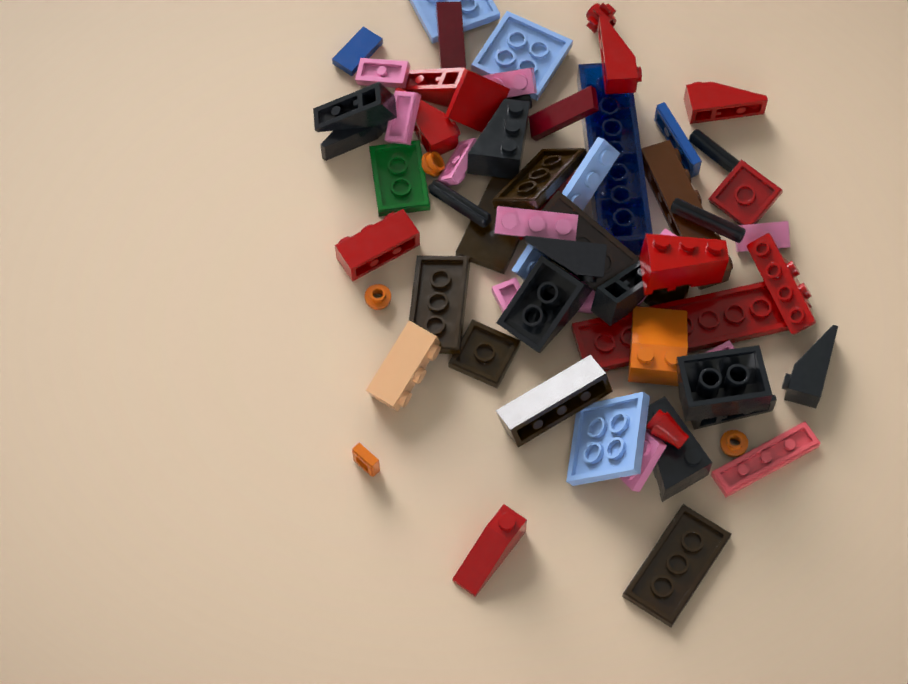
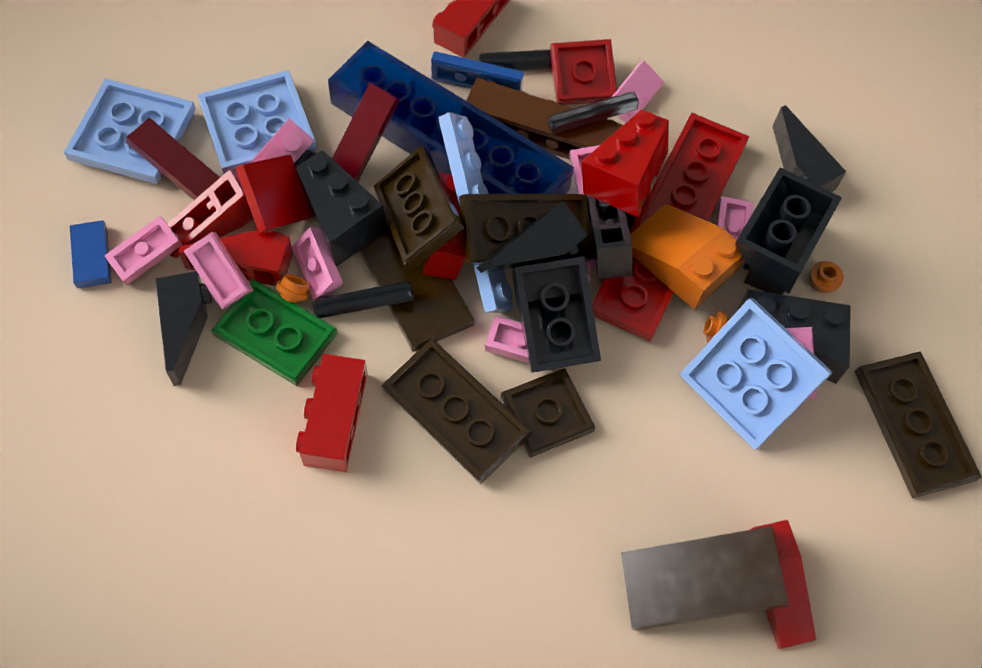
camera: 55 degrees left, 0 degrees up
(356, 110) = (167, 304): black slope -> none
(365, 459) = (577, 627): orange tile -> none
(377, 303) = (395, 470): orange plate -> none
(404, 366) = (506, 499): light nougat brick -> none
(450, 501) = (704, 579): none -> dark brown tile
(535, 223) = (477, 244): bright pink plate -> none
(554, 400) = (667, 389): brick -> none
(600, 10) = (290, 31): red gear -> none
(617, 61) = (360, 43): red slope -> none
(667, 429) = (797, 312): red cone -> none
(765, 459) = (860, 264): coral tile -> none
(782, 283) = (704, 112): red bracket -> none

